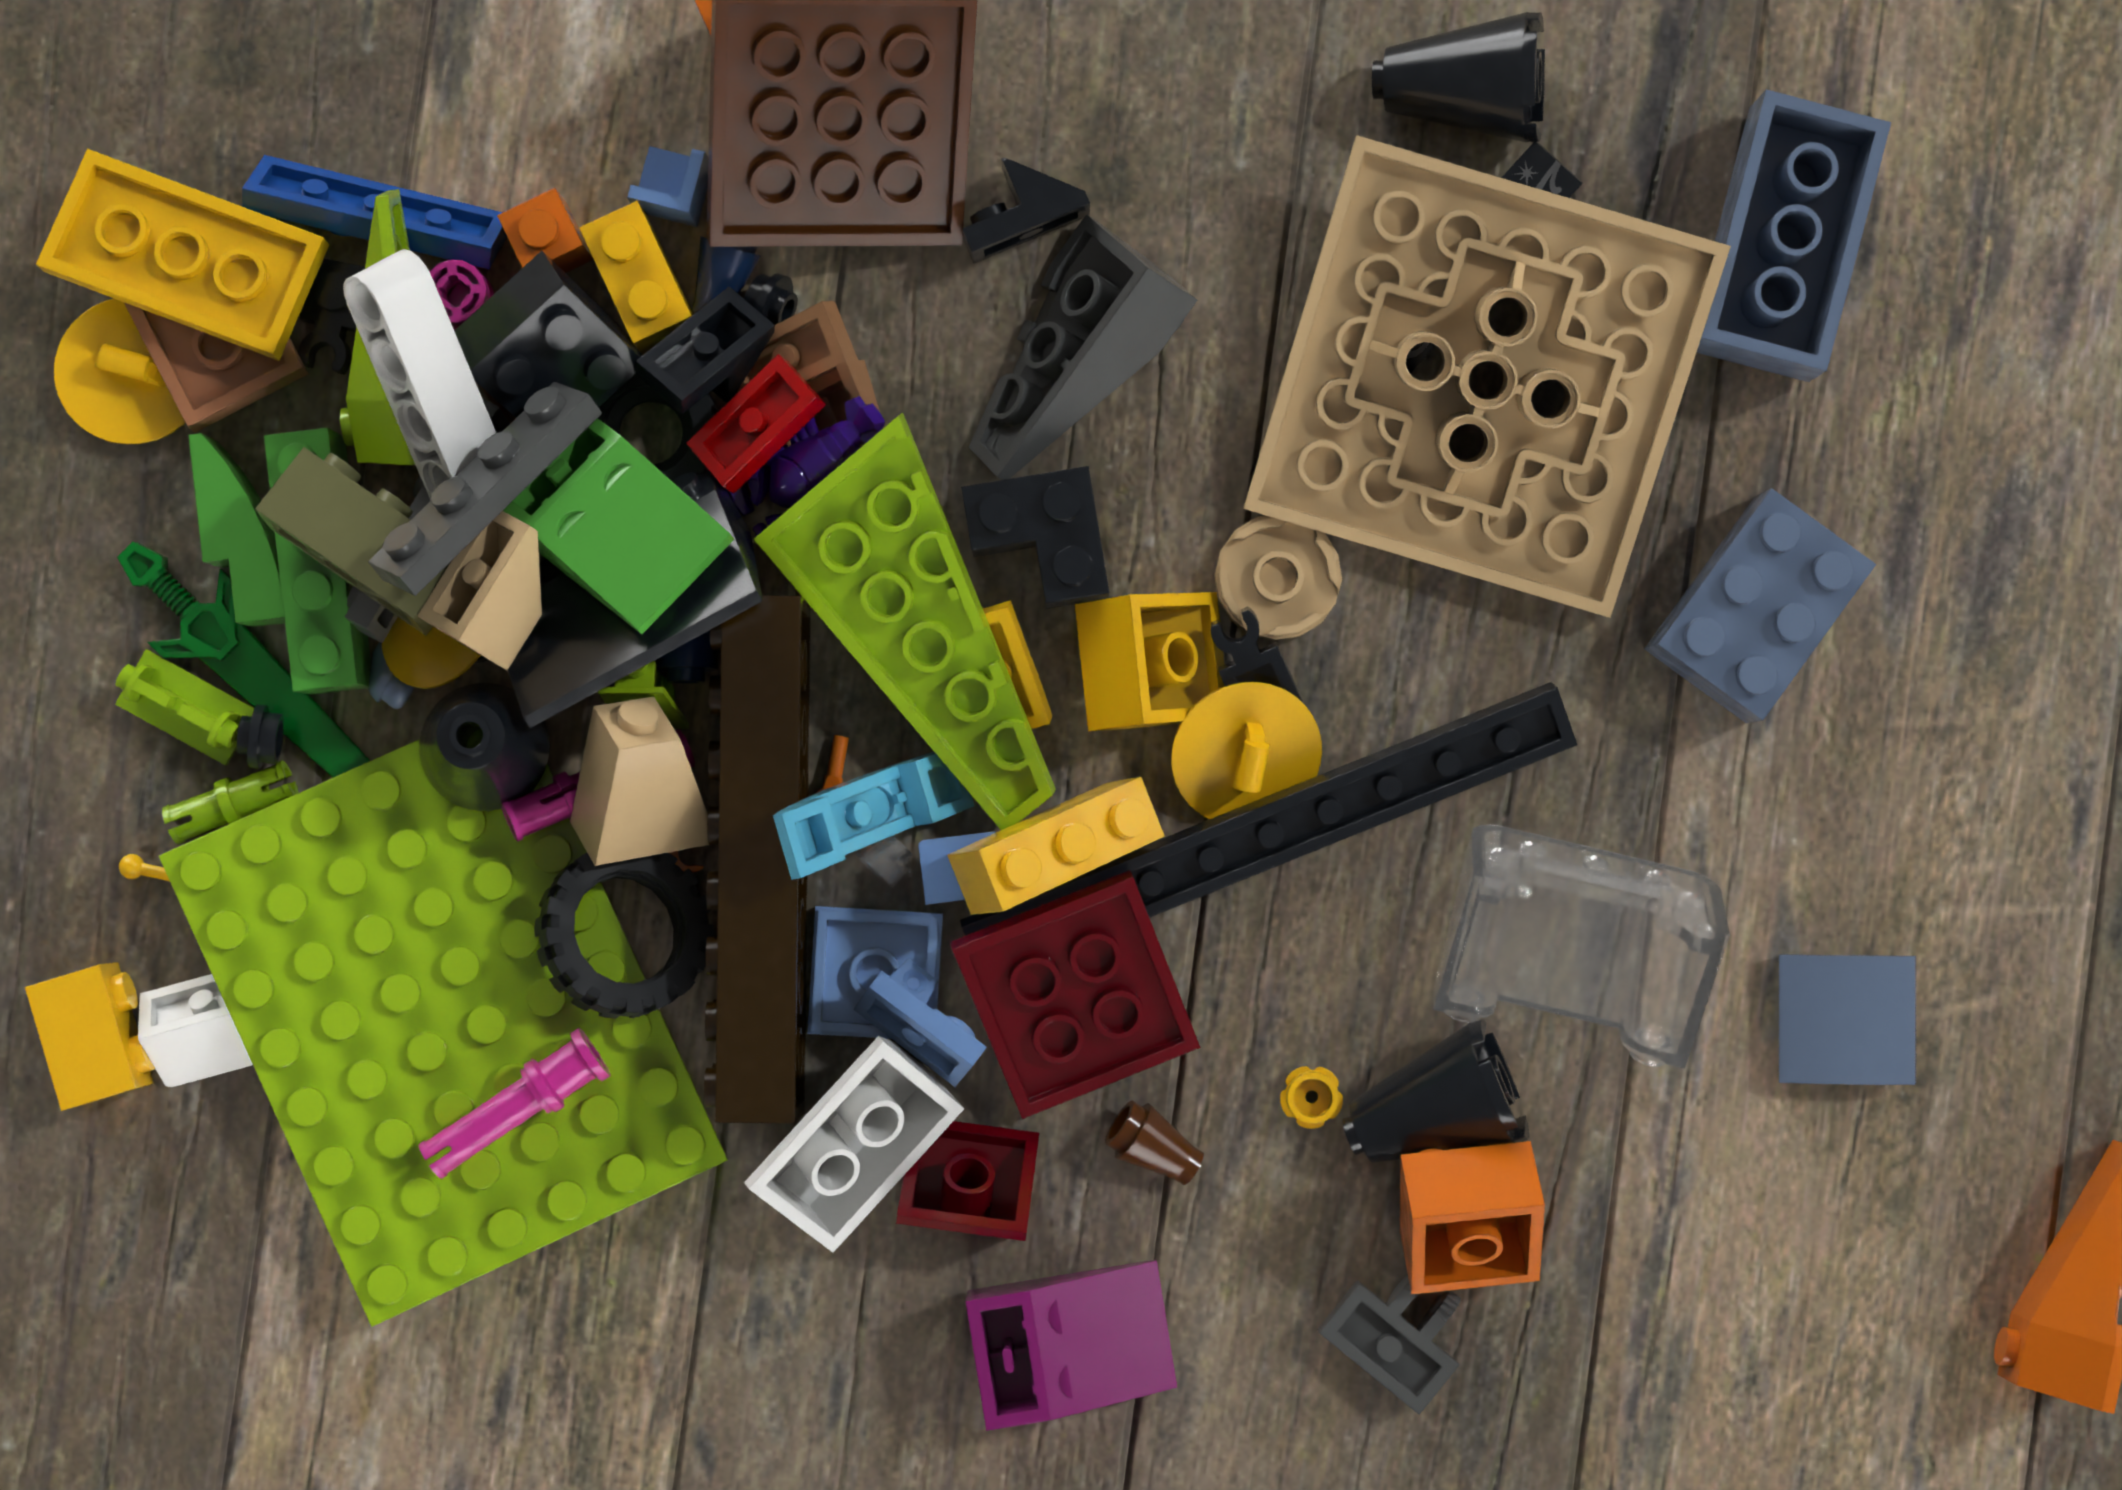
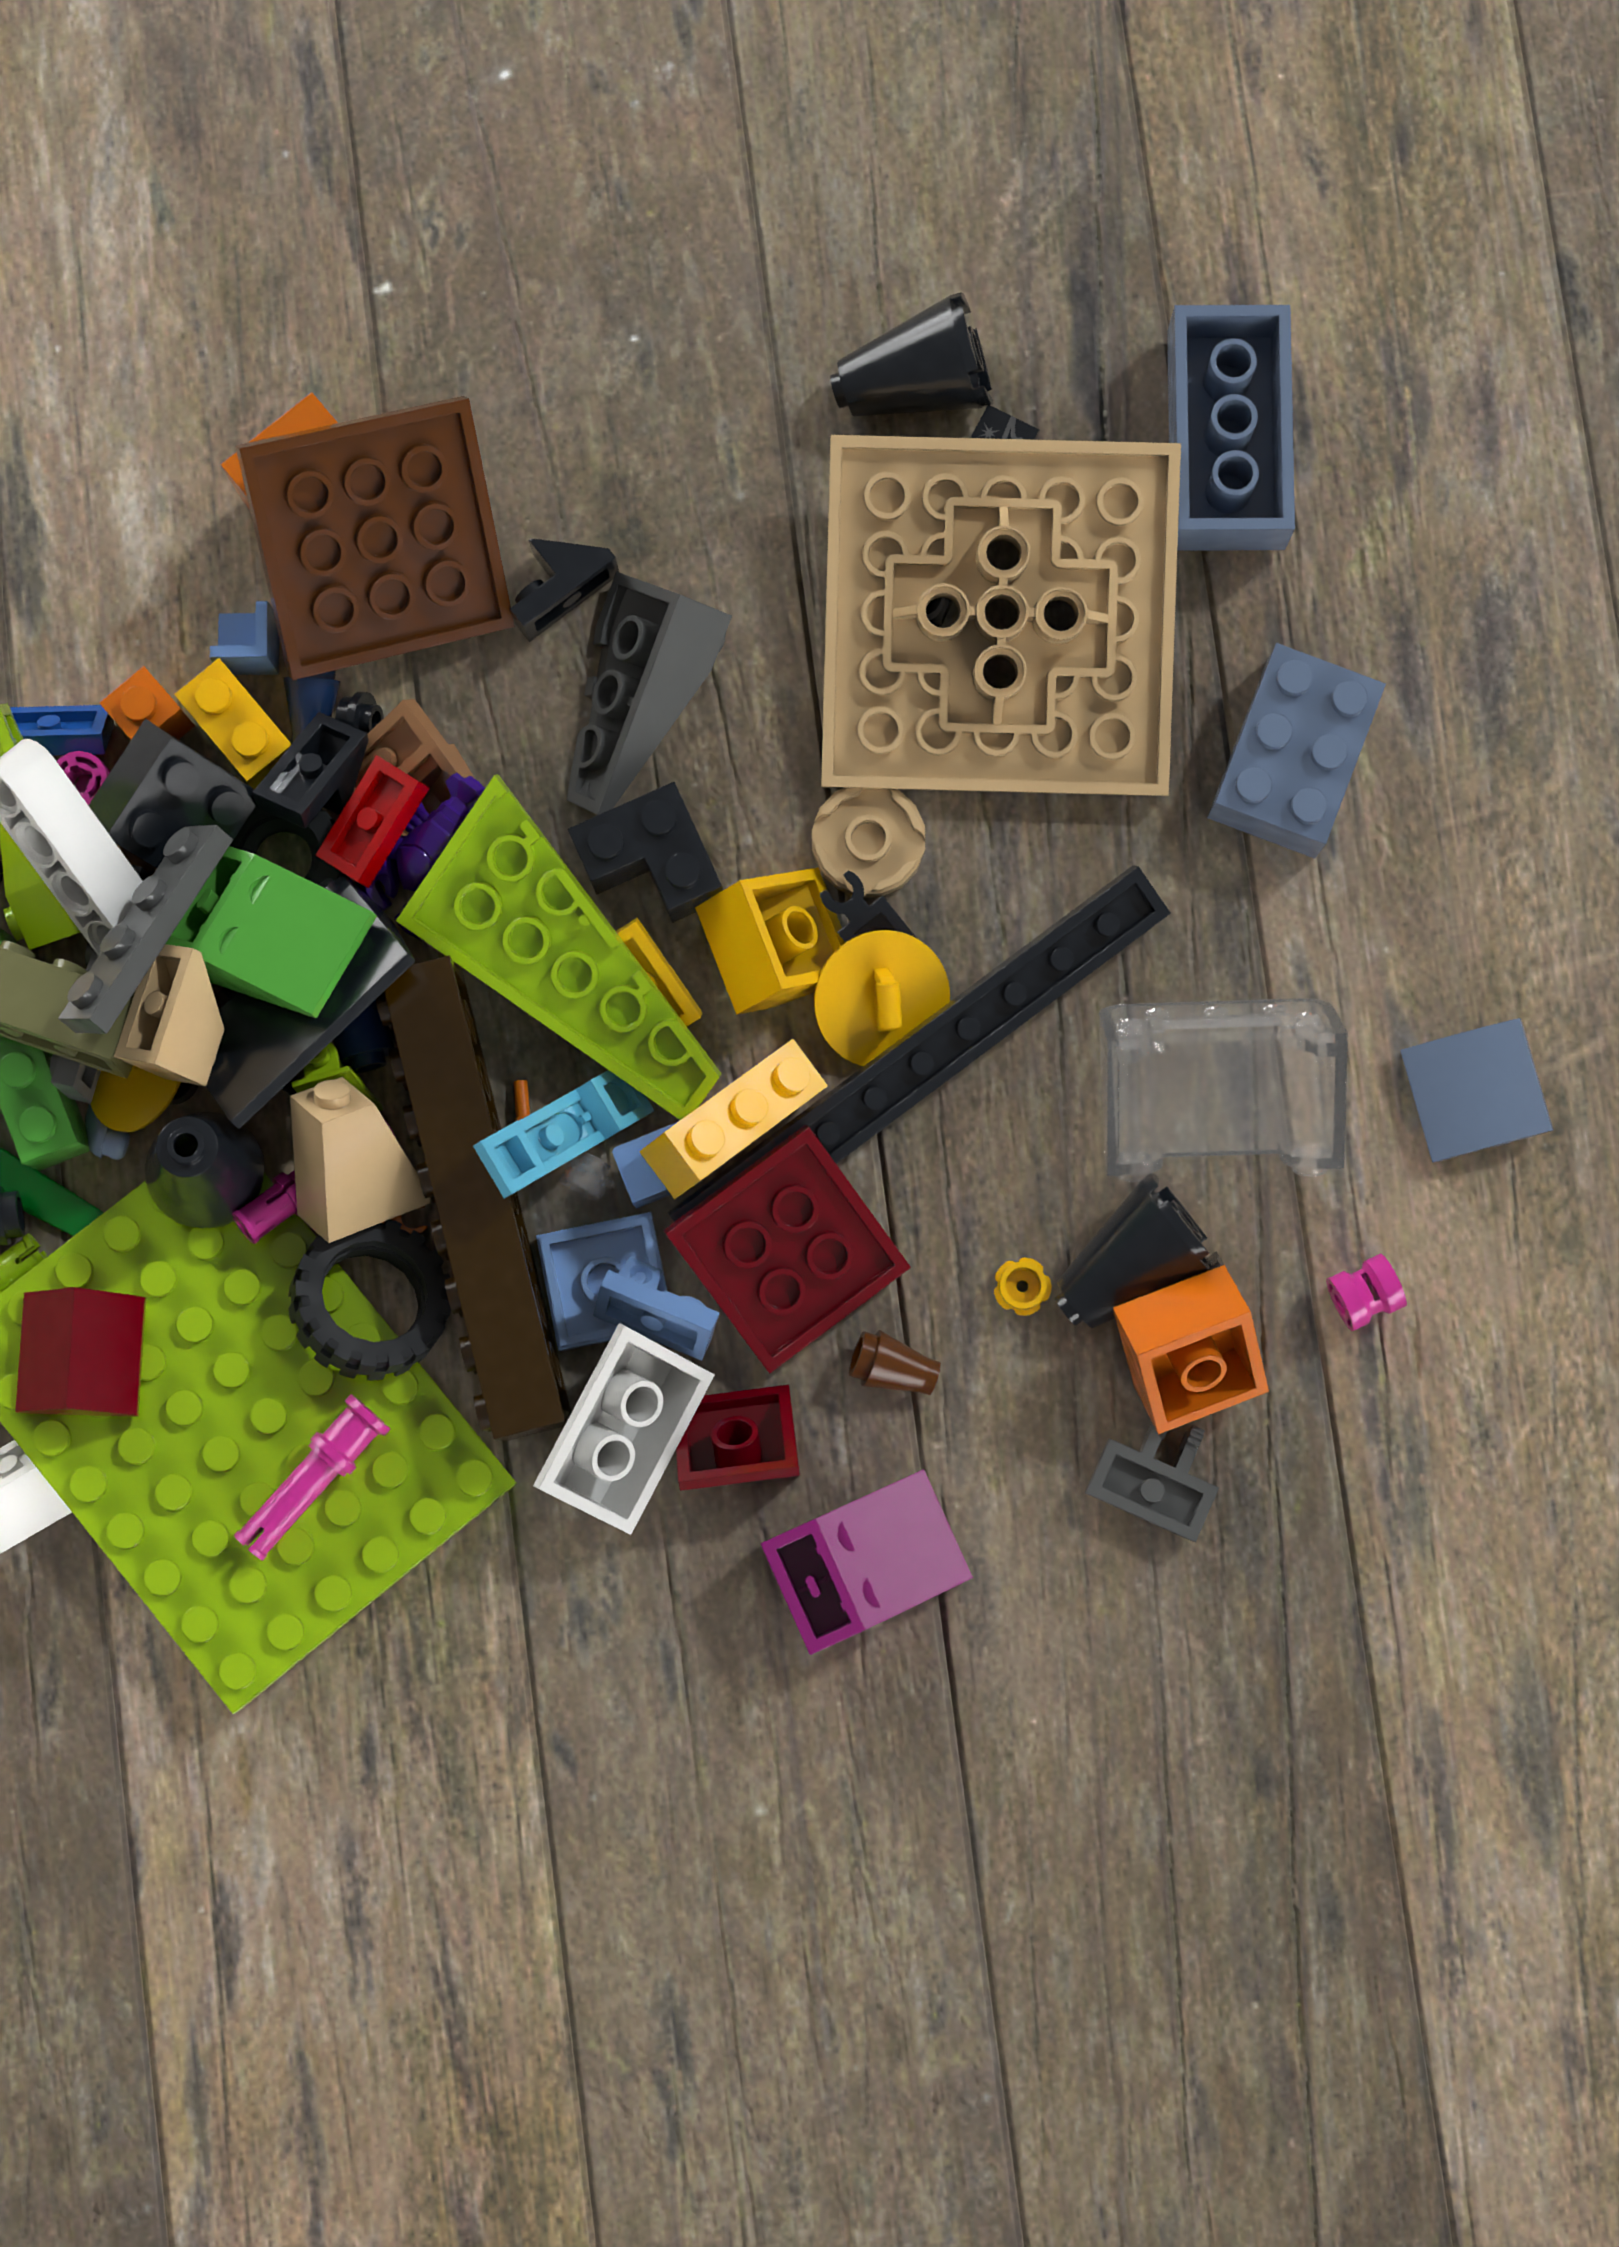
camera: 10 degrees left, 5 degrees down
(305, 911) = (81, 1353): none -> dark red slope
(1671, 1201) = (1366, 1292): none -> dark pink wheel

